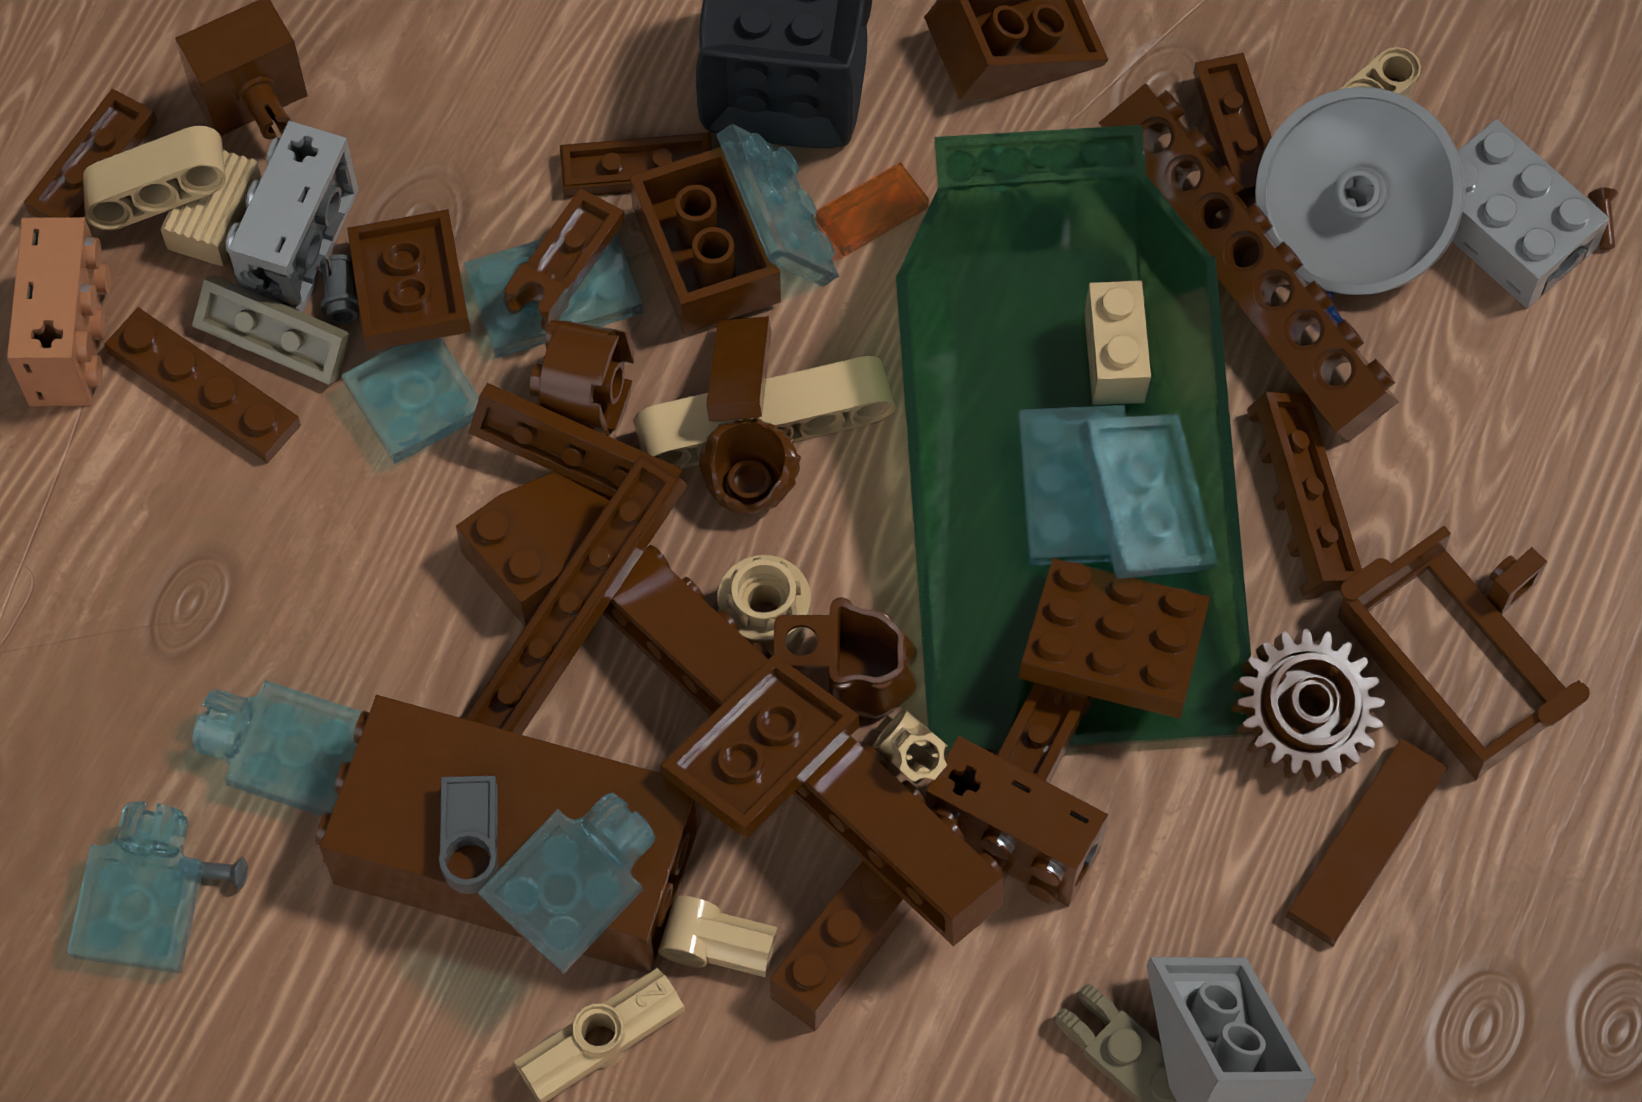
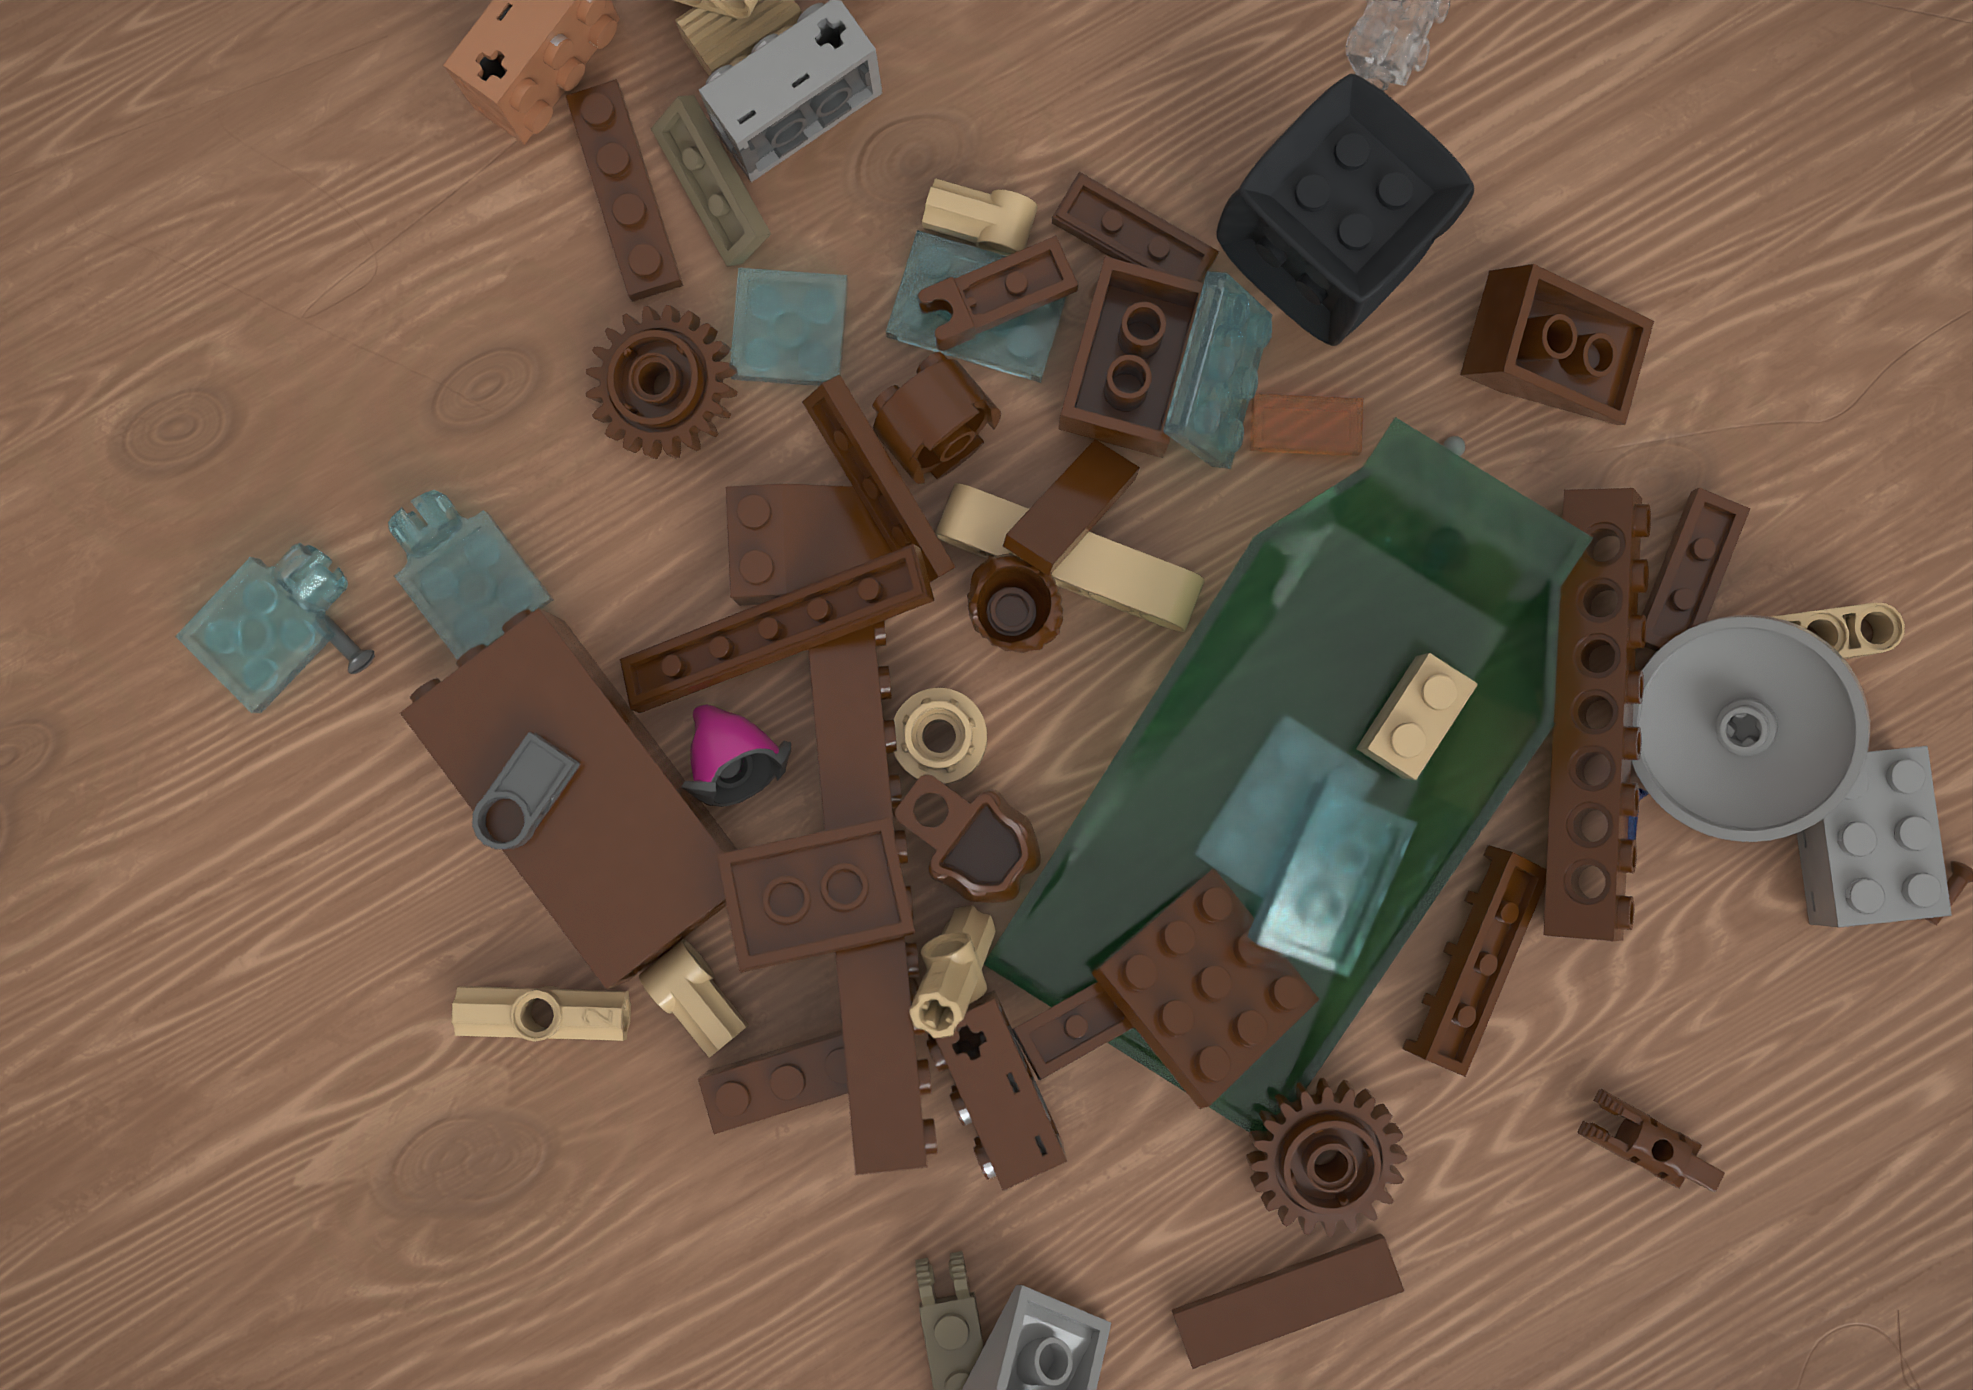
camera: 40 degrees right, 20 degrees up
(339, 290) = (796, 181): dark grey pin -> none
(361, 519) = (629, 377): none -> reddish brown gear
(408, 280) = (853, 217): reddish brown plate -> none
(519, 218) = (992, 221): none -> tan piece
(571, 879) = (572, 902): clear light blue plate -> none
(610, 725) = (731, 758): none -> hat
(1383, 579) = (1526, 1318): reddish brown piece -> none
(1515, 578) = (1593, 1172): reddish brown plate -> none
(1546, 530) = (1670, 1158): none -> reddish brown hinge

